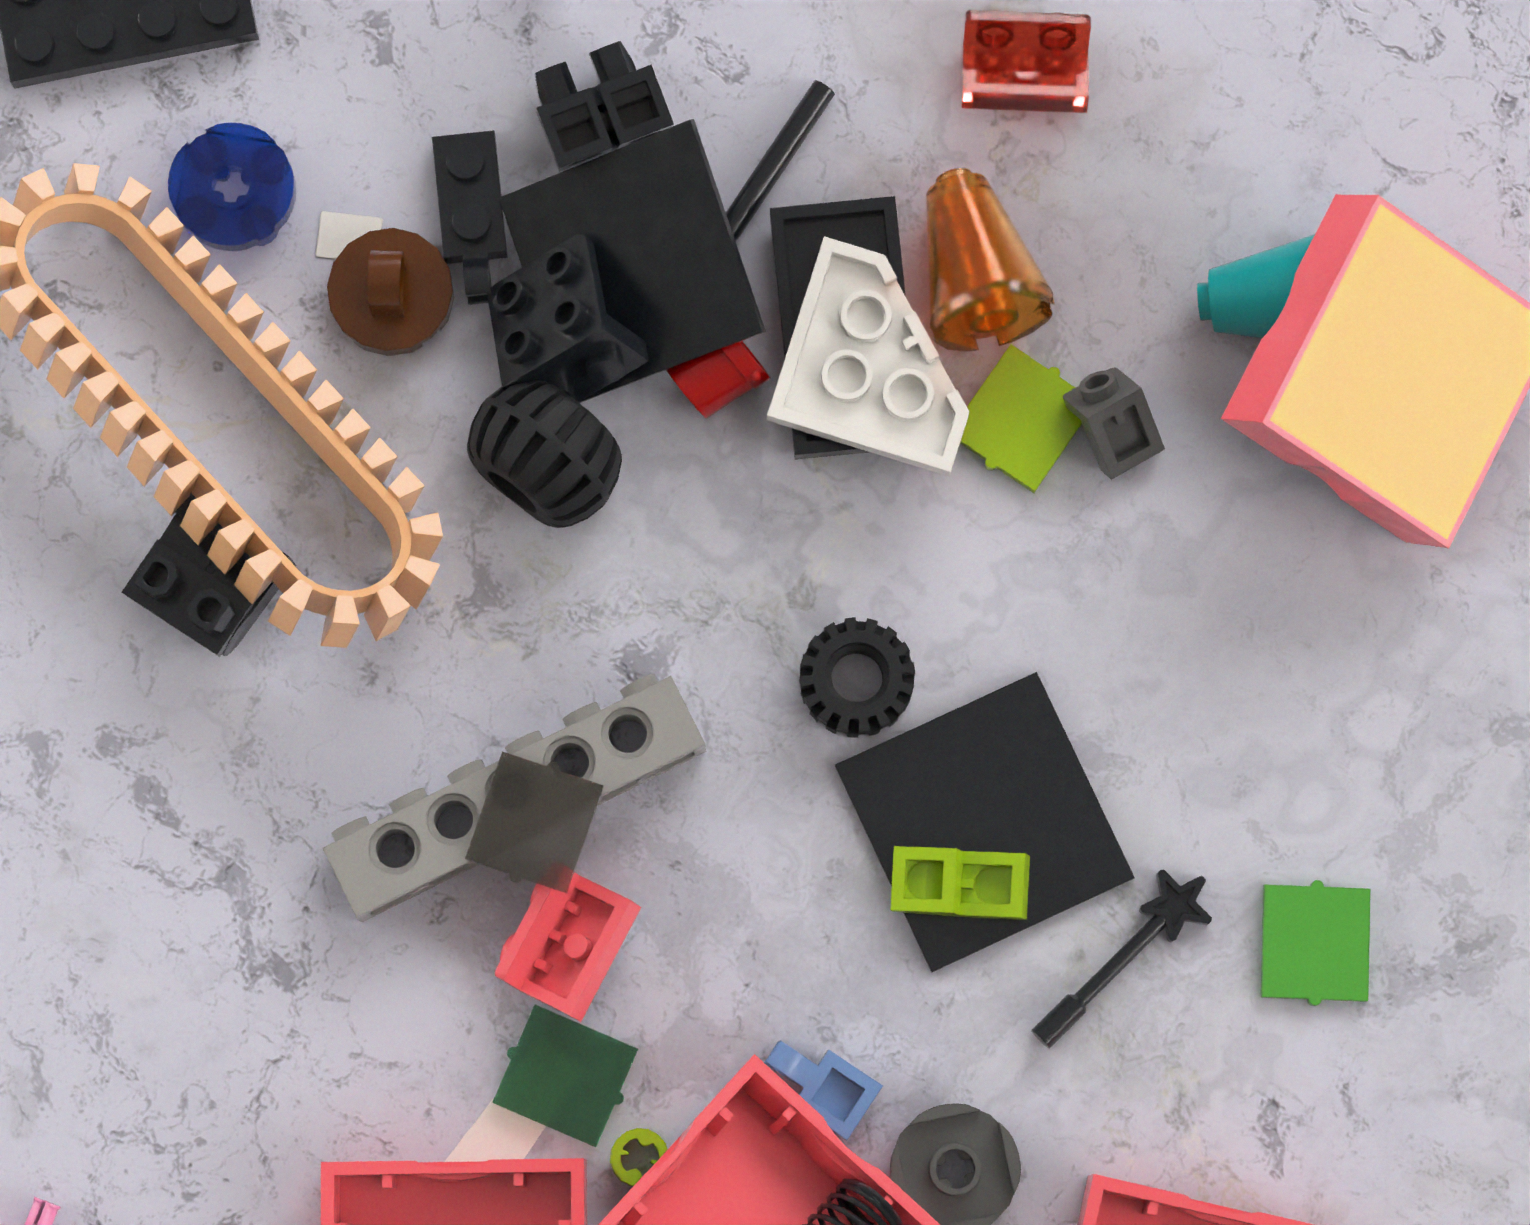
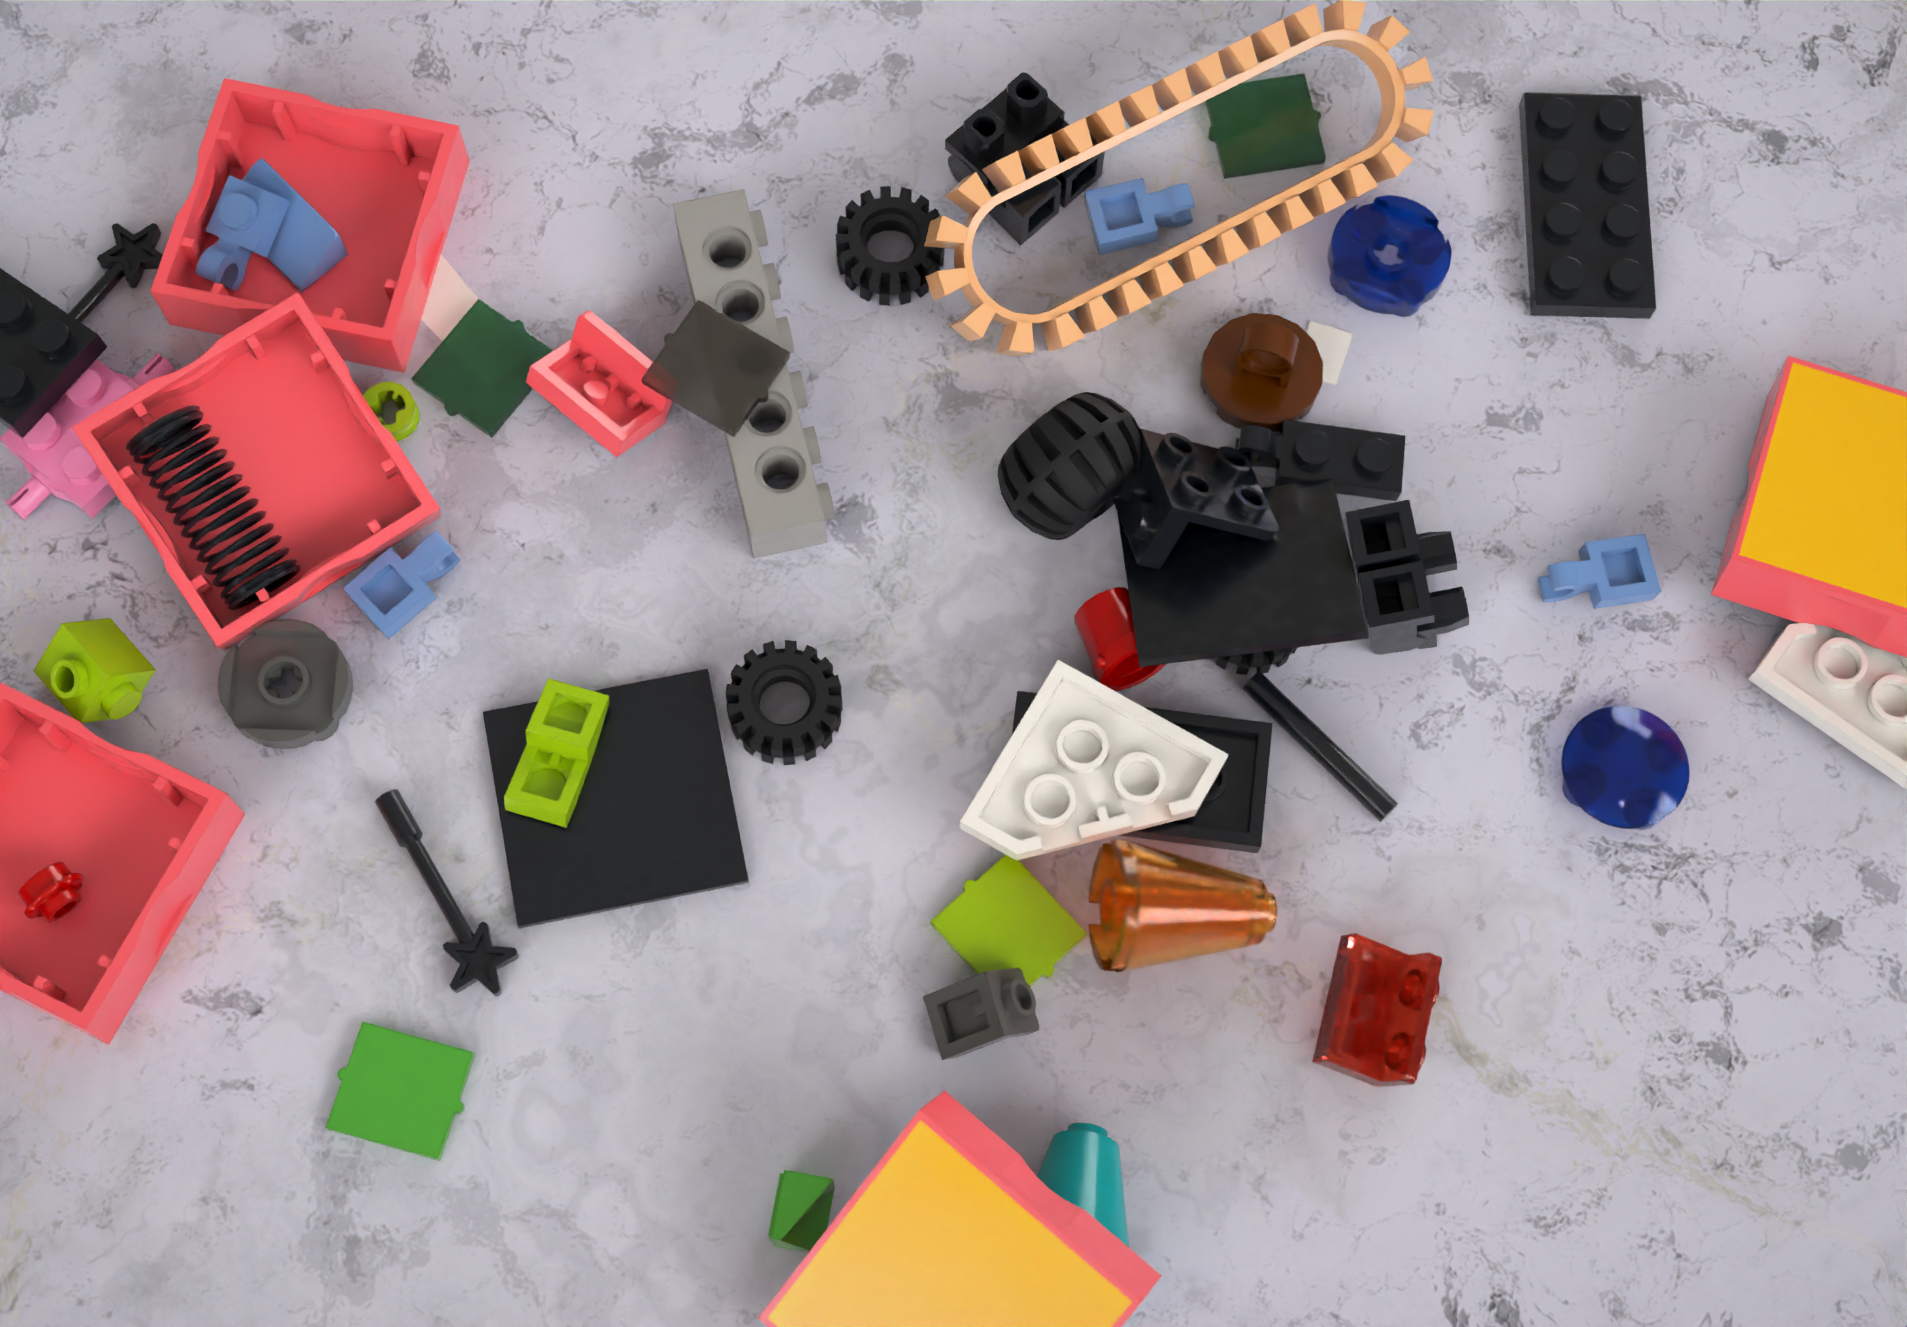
camera: 100 degrees right, 10 degrees down
(119, 330) = (1265, 127): none -> clear green piece
(245, 457) = (1129, 216): none -> medium blue plate
(345, 730) = (884, 215): none -> black tyre
(1336, 544) = (800, 1210): none -> bright green slope

